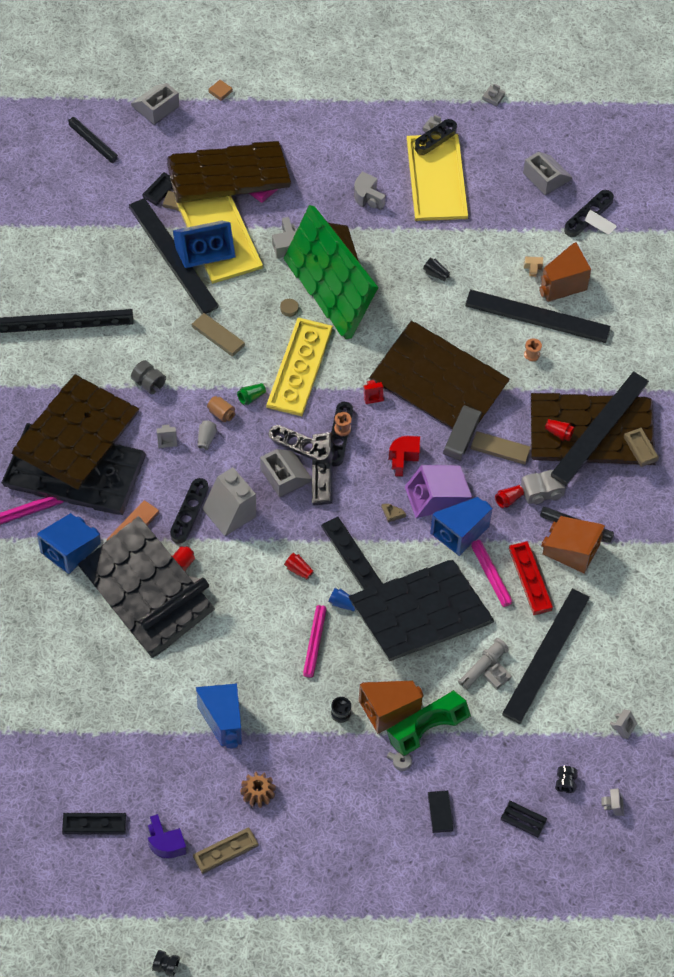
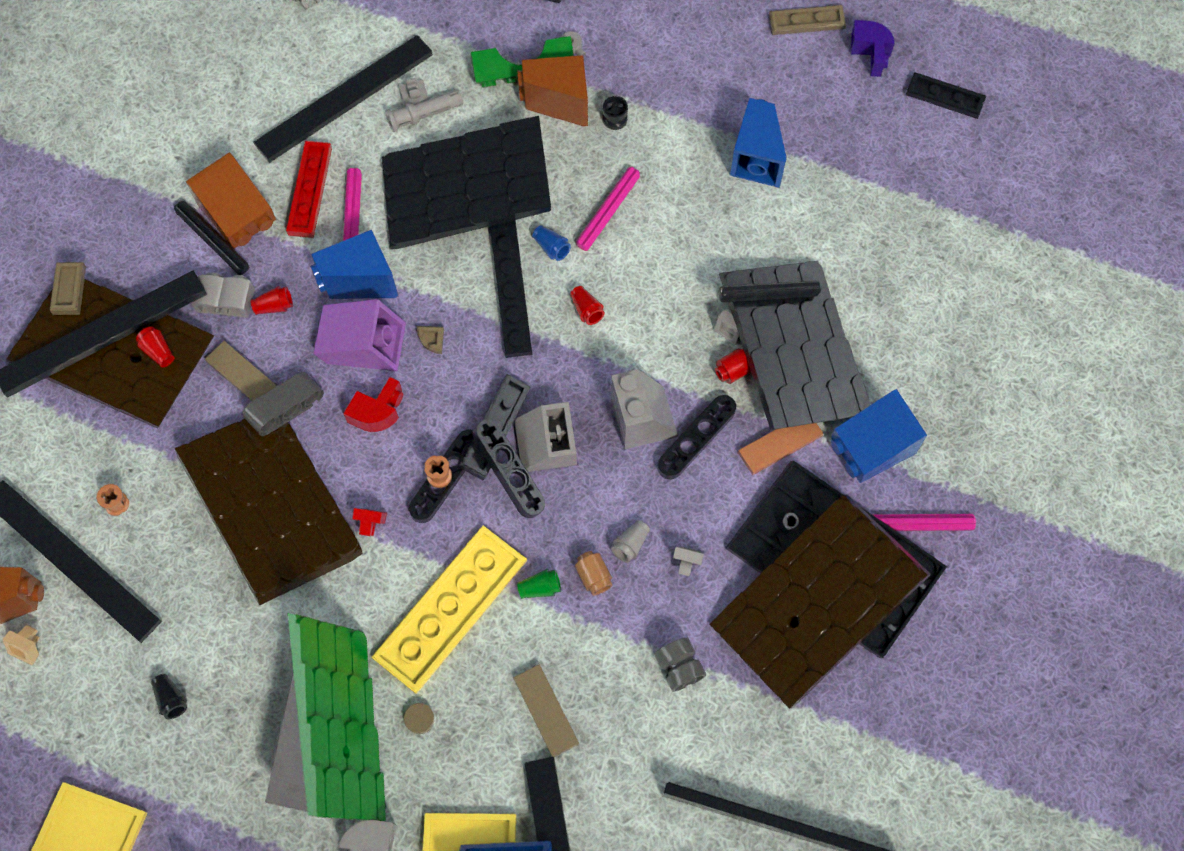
camera: 155 degrees left, 10 degrees up
(258, 796) = (748, 62): medium nougat gear -> none

